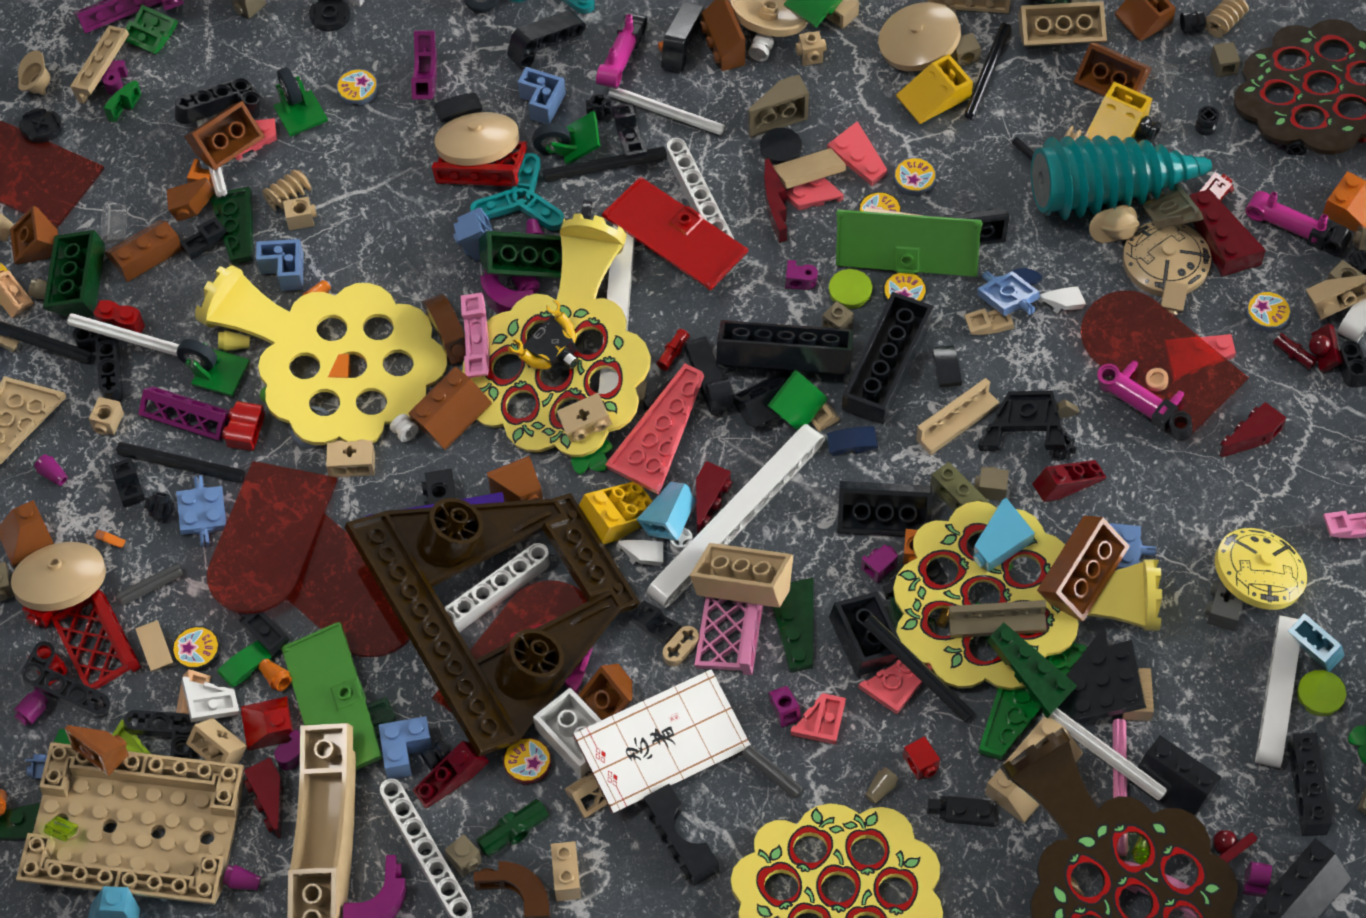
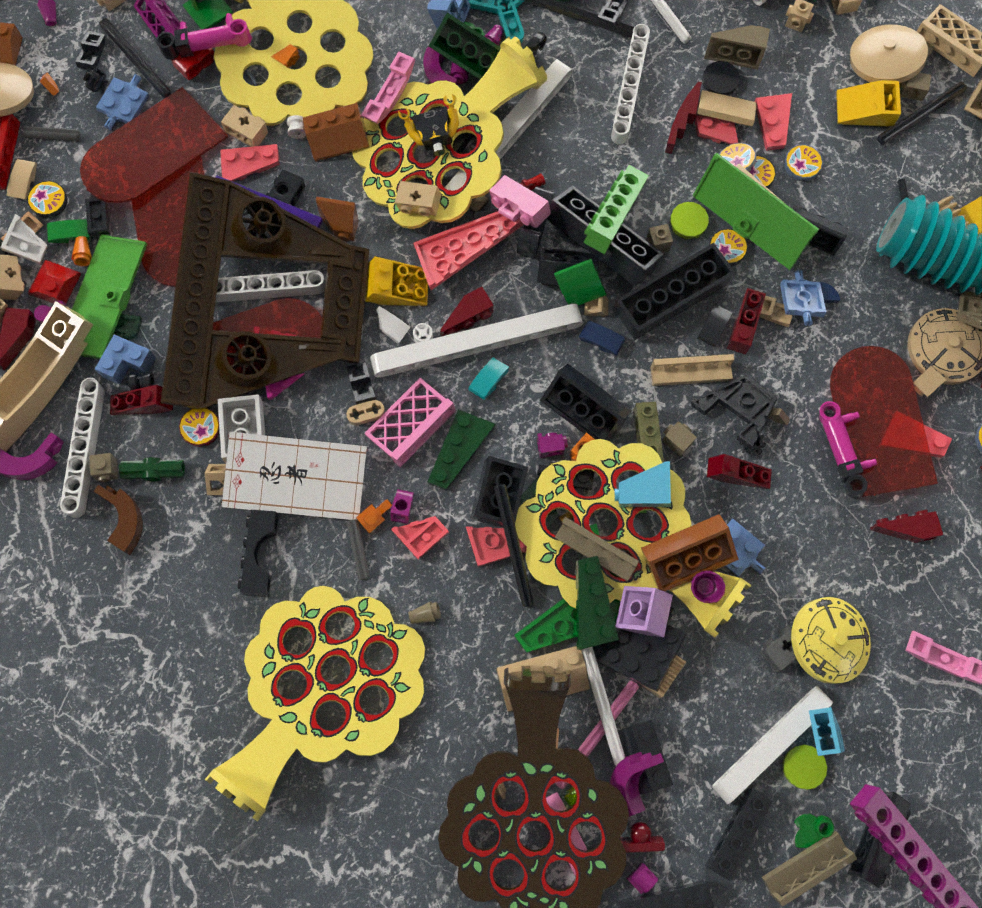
camera: 30 degrees right, 15 degrees up
(235, 411) = (187, 42): none -> dark pink piece
(377, 489) = (241, 162): none -> coral wing
(447, 326) = (377, 67): reddish brown arch -> none
(565, 871) = (162, 525): tan brick -> none
(593, 461) = (409, 235): green plate -> none
(608, 691) = (286, 414): dark orange slope -> none
(668, 512) = (428, 307): medium azure slope -> none
(675, 233) = (590, 98): red door -> none
(685, 362) = (518, 201): none -> bright pink piece
(743, 575) = (439, 391): tan slope -> none
(761, 733) = (372, 516): none -> orange plate
(775, 535) = (488, 378): none -> teal slope
(780, 314) = (615, 208): none -> bright green brick
(800, 277) = (658, 188): magenta leg -> none
(853, 200) = (740, 154): none -> tile
(921, 758) = (468, 614): red brick -> none
(963, 810) = (471, 673): black hinge -> none
(974, 345) = (746, 321): none -> dark red slope
(1064, 298) = (843, 329): white slope -> none
(1081, 643) = (644, 610): none -> lavender slope
(1114, 224) = (926, 294): tan piece -> none
(1122, 584) = (708, 587): none -> magenta hair
(1156, 379) = (865, 438): light nougat tile -> none
(1174, 789) = (627, 776): none -> magenta arch

